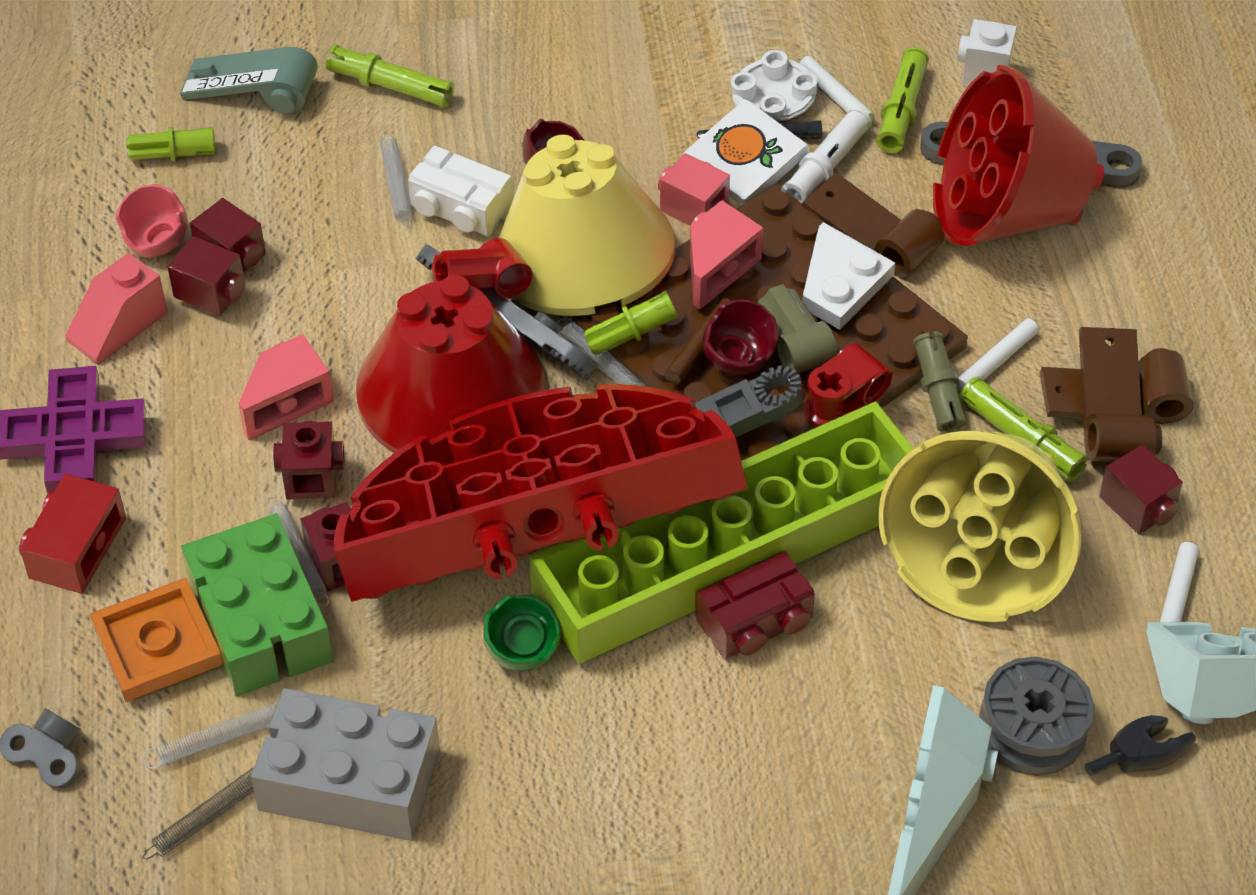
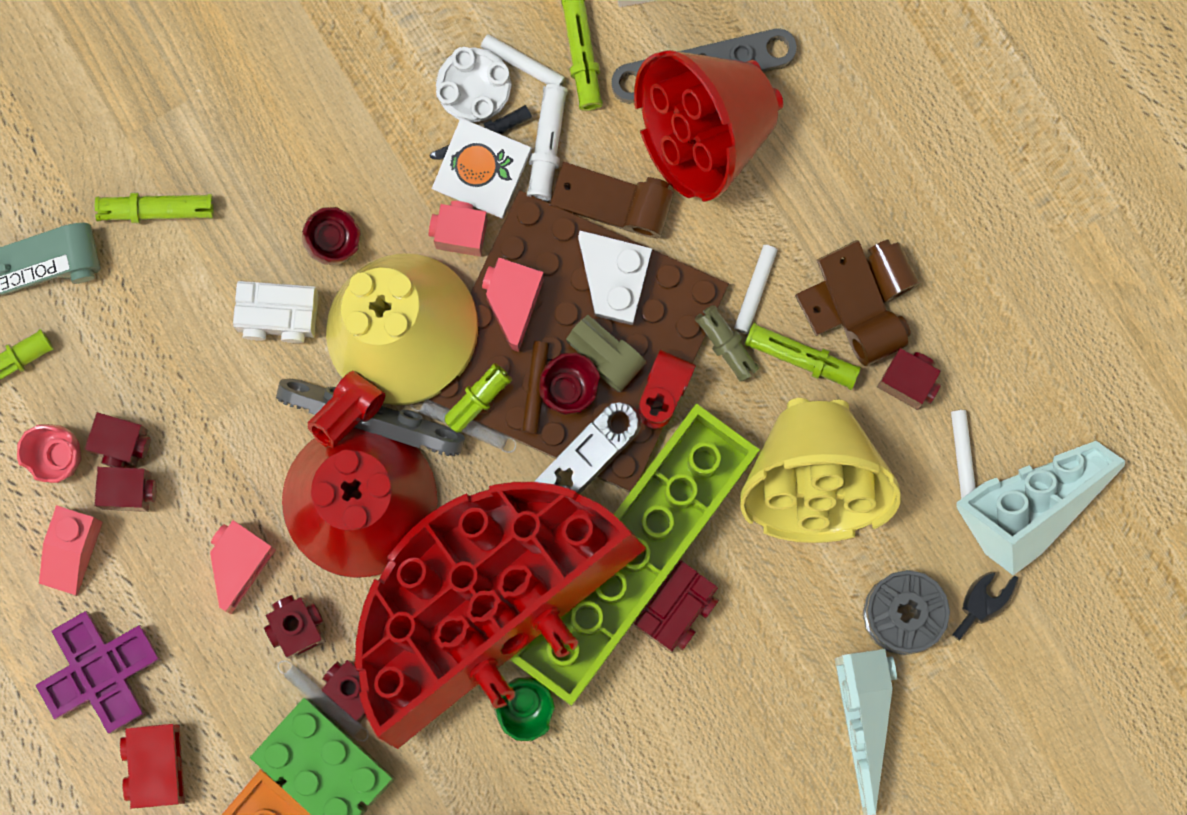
camera: 25 degrees left, 30 degrees up
(402, 179) = (202, 287): white piece -> none

